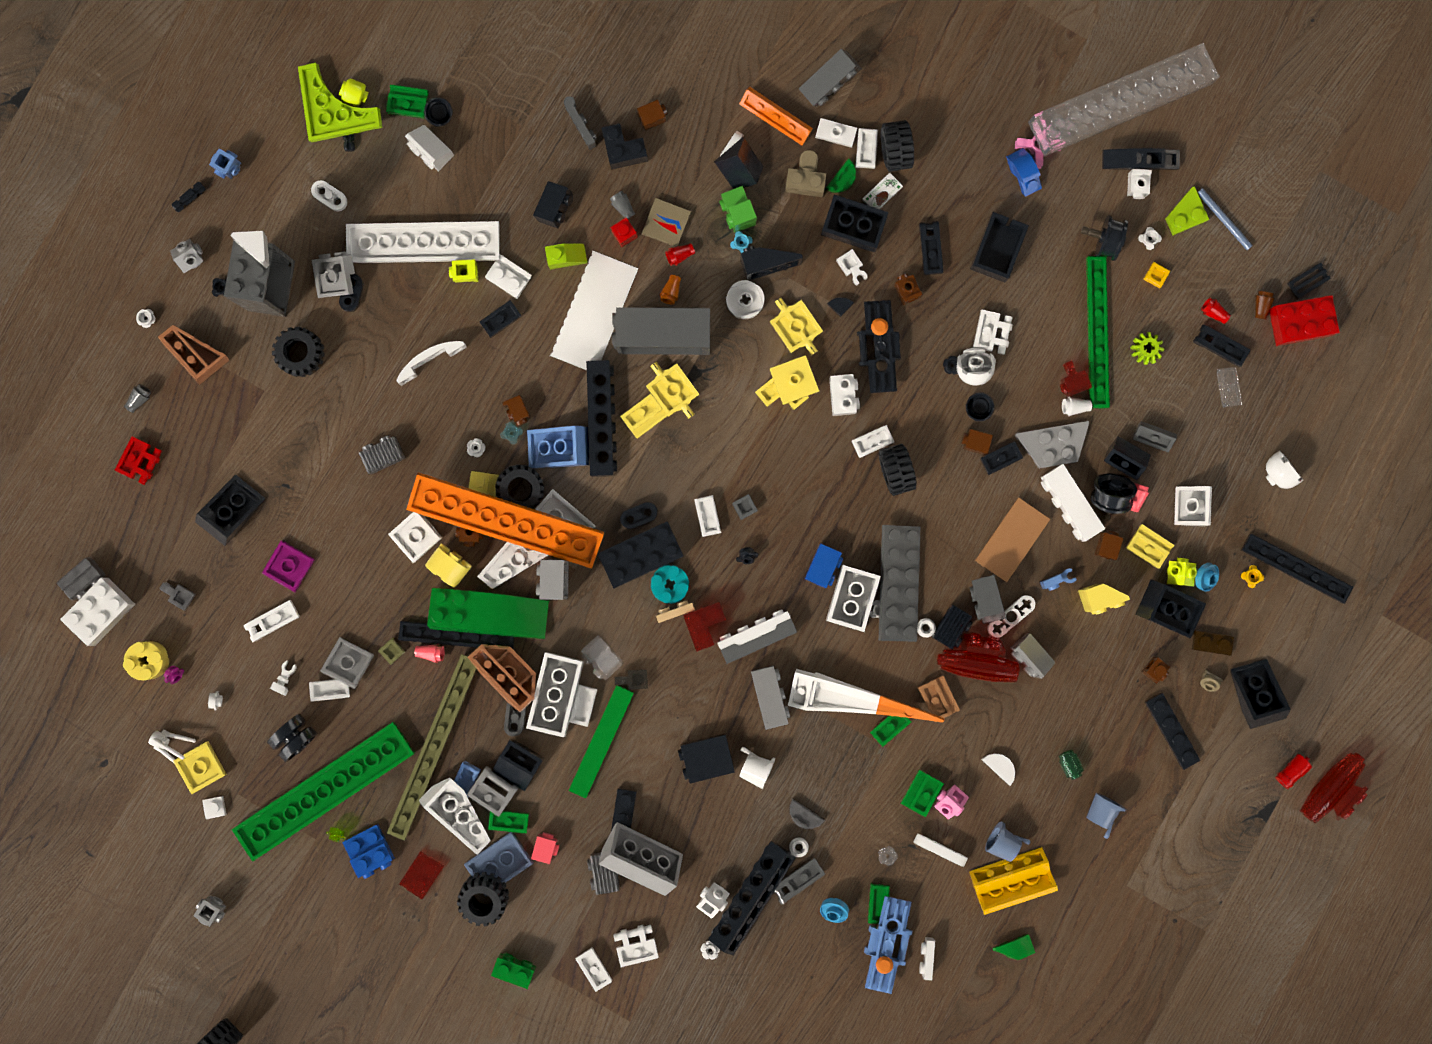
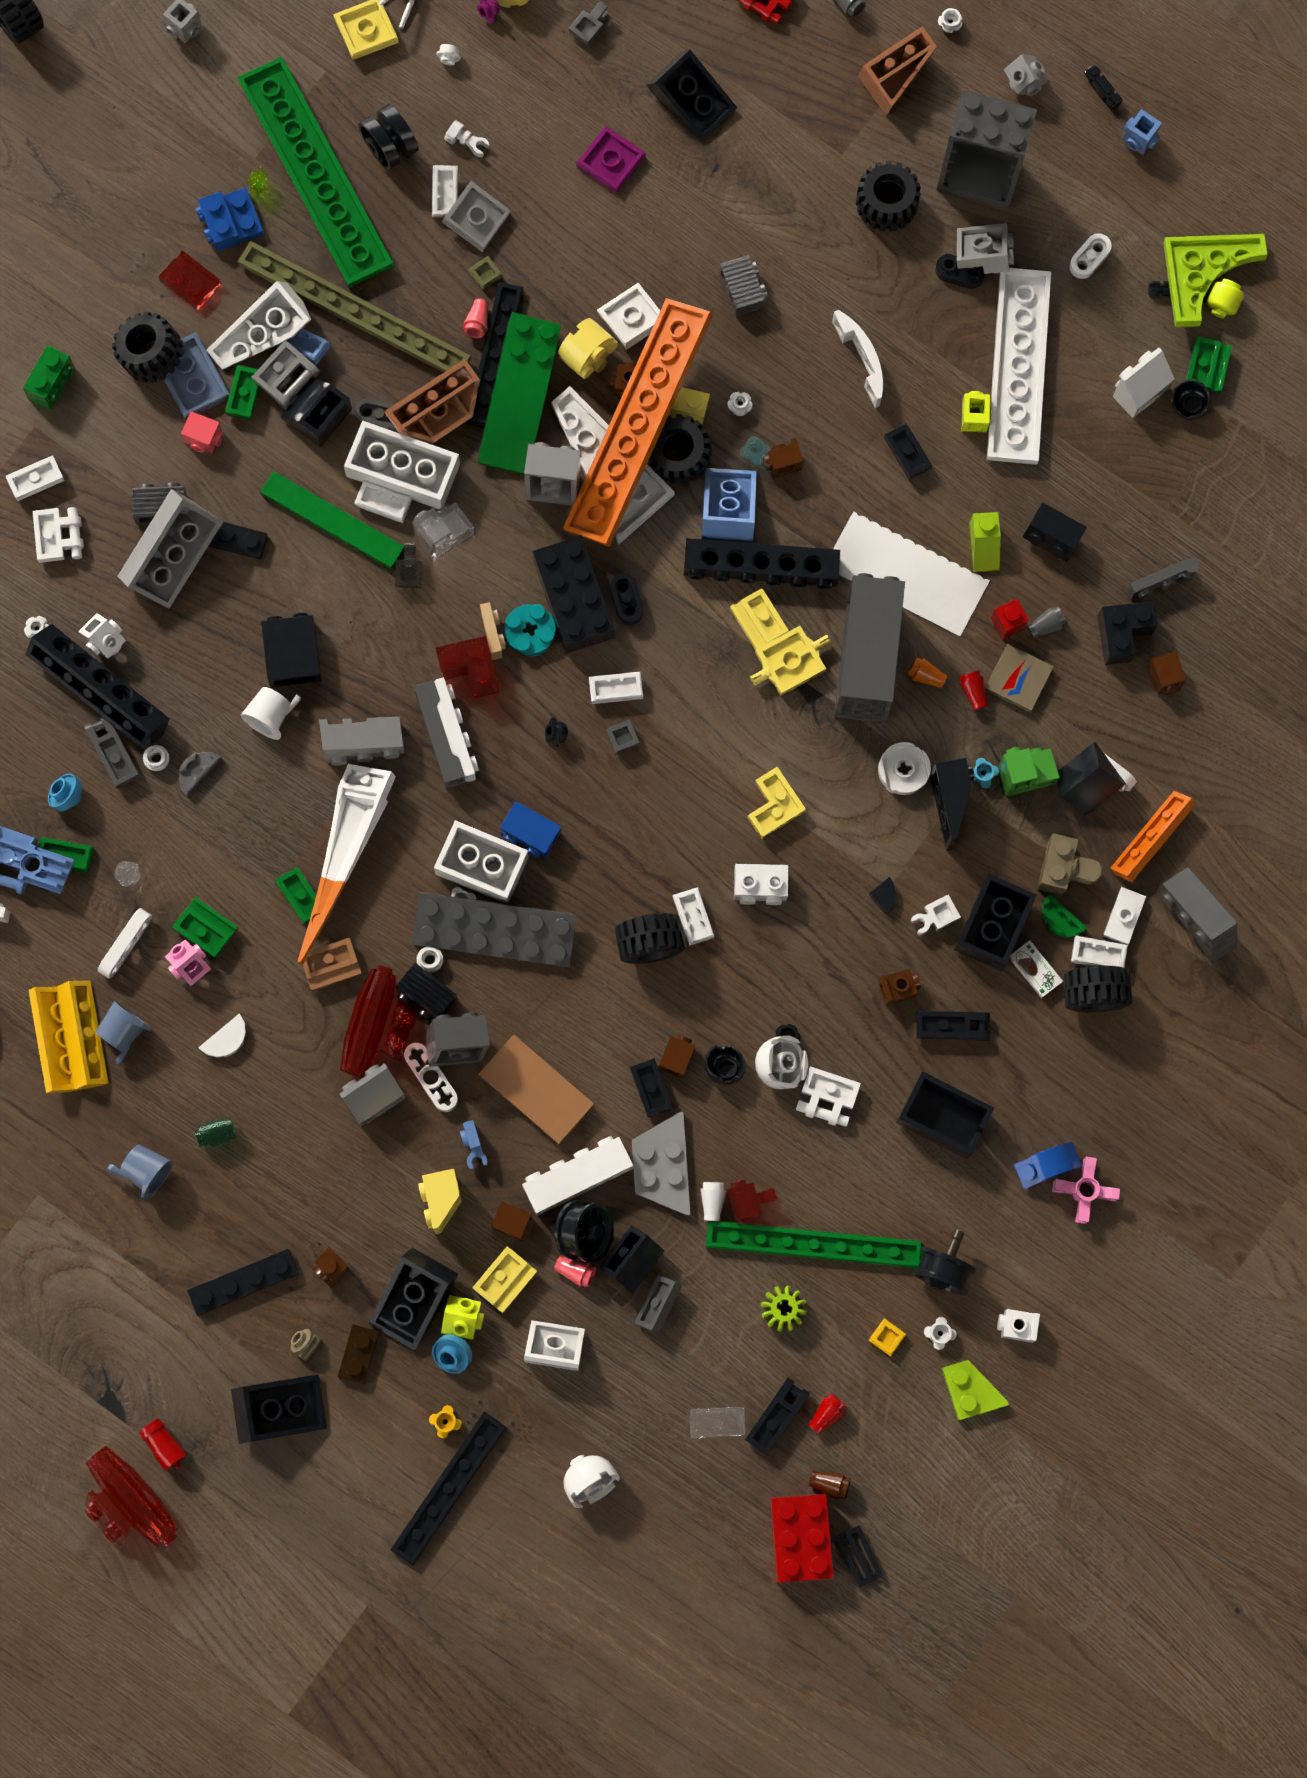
camera: 90 degrees right, 10 degrees down
(214, 807) = (312, 41): white plate -> none
(255, 244) = (1020, 127): white slope -> none
(272, 620) = (542, 132): white plate -> none
(508, 276) = (963, 468): white plate -> none
(794, 380) = (787, 818): light yellow plate -> none
(796, 326) = (861, 832): light yellow plate -> none
(886, 344) = (853, 940): black piece -> none
(1123, 99) = (1139, 1311): clear brick -> none
(1141, 159) = (1053, 1331): black slope -> none
(1224, 219) = (958, 1444): sand blue bar -> none

